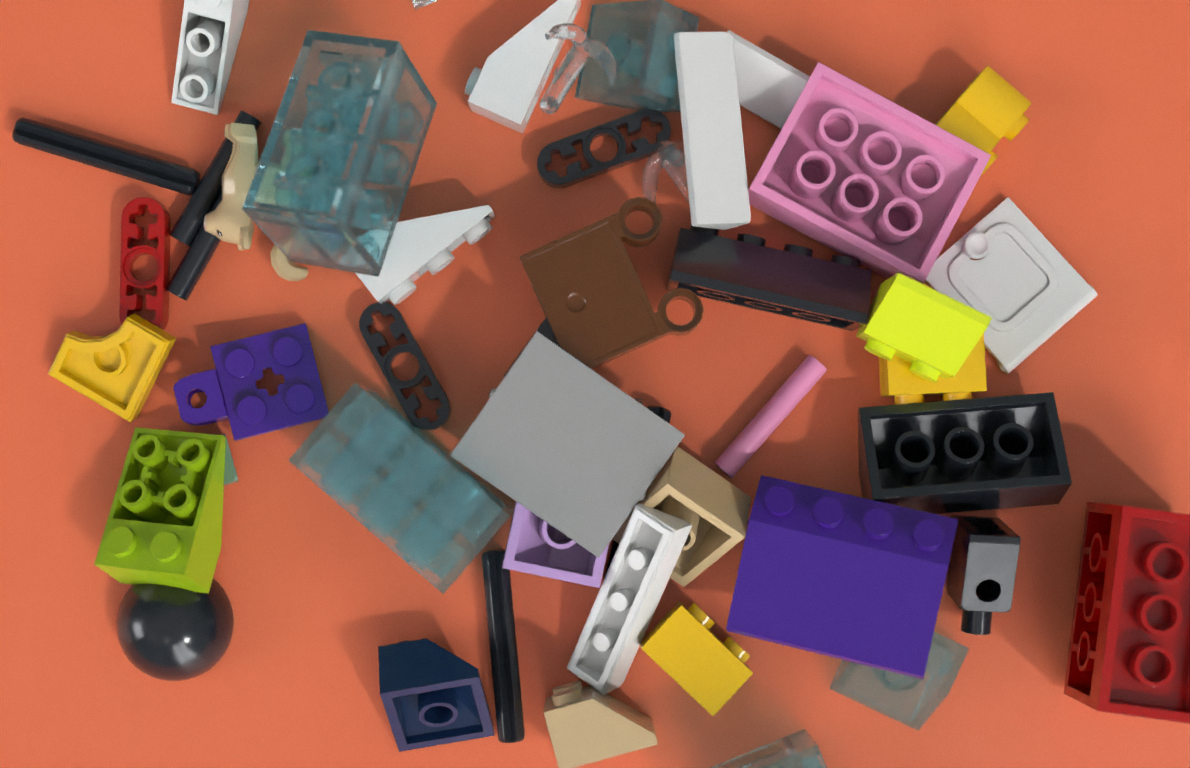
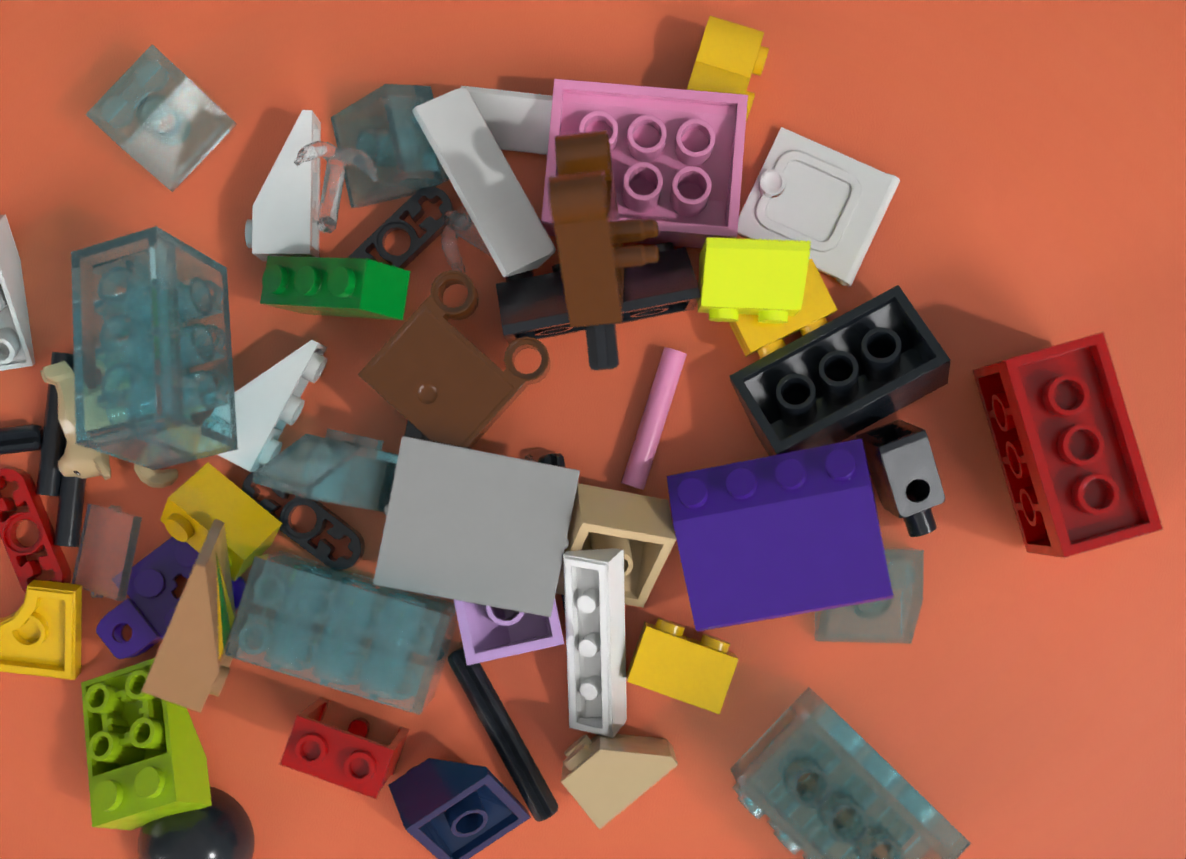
camera: 20 degrees left, 0 degrees up
(212, 317) = (106, 551): none -> clear piece
(263, 437) = (194, 646): none -> medium nougat slope
(329, 335) = (213, 496): none -> yellow brick
(352, 597) = (341, 755): none -> red window
(458, 334) = (333, 470): none -> clear light blue slope
(532, 166) = (335, 287): none -> green brick
(791, 228) = (592, 239): none -> reddish brown piece

